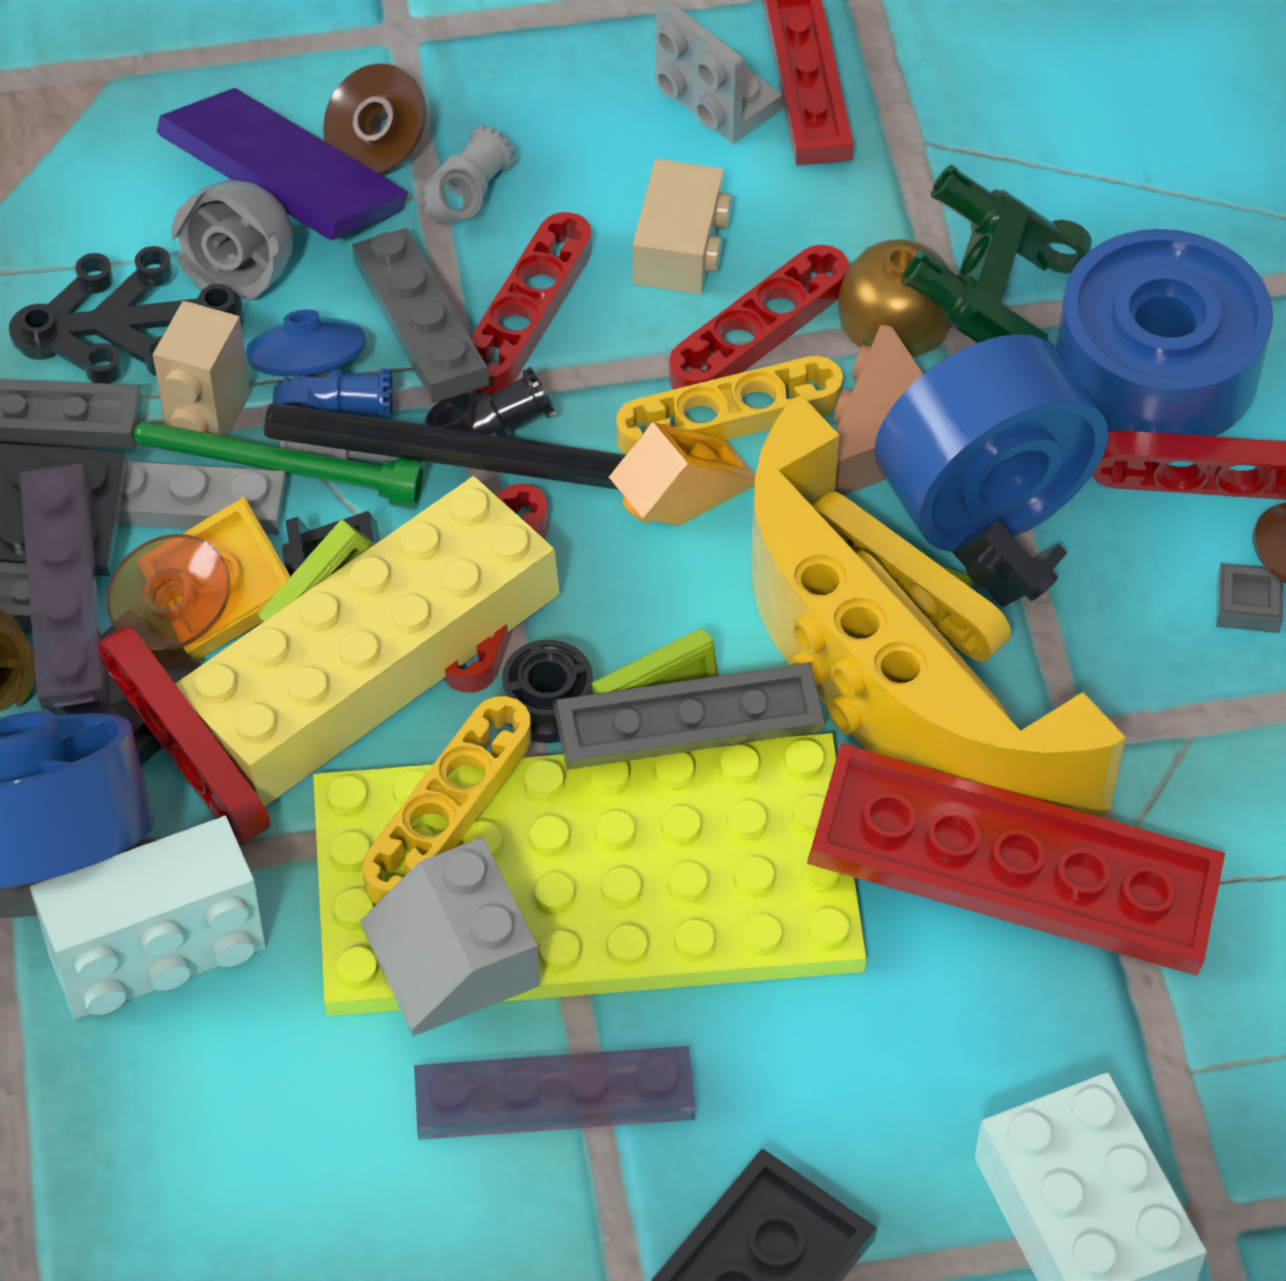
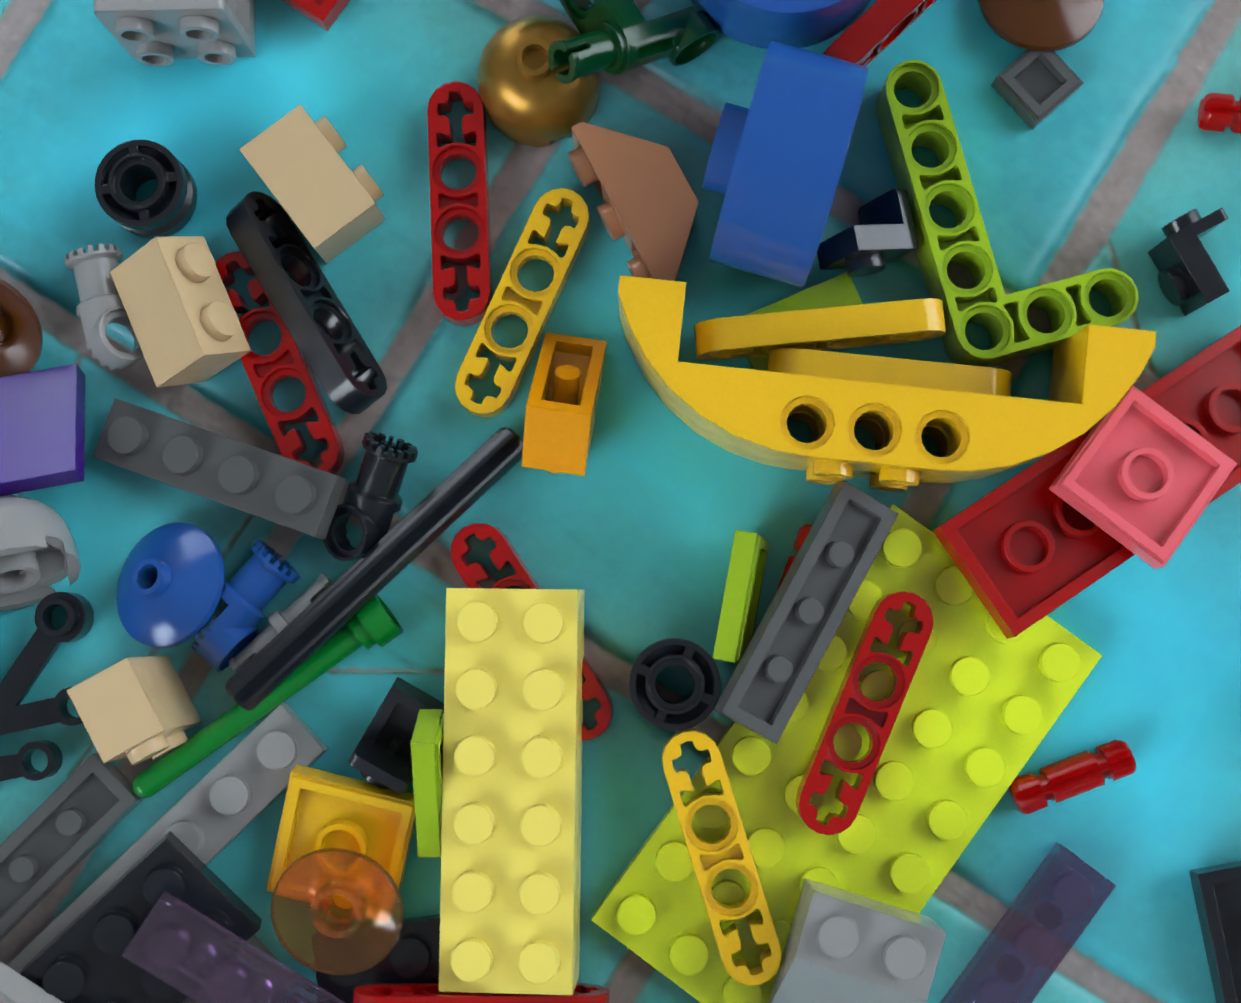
camera: 40 degrees left, 30 degrees up
(507, 211) = (180, 310): none -> tan brick
(567, 332) = (338, 361): none -> black beam
(571, 141) = (126, 170): none -> black wheel
(657, 822) = (875, 716): none -> red beam
(750, 1016) = (1072, 776): none -> red axle
(1021, 840) = (1143, 477): none -> coral plate
(1100, 577) = (968, 242): none -> lime beam
(1237, 765) = (1183, 264): none -> black bracket

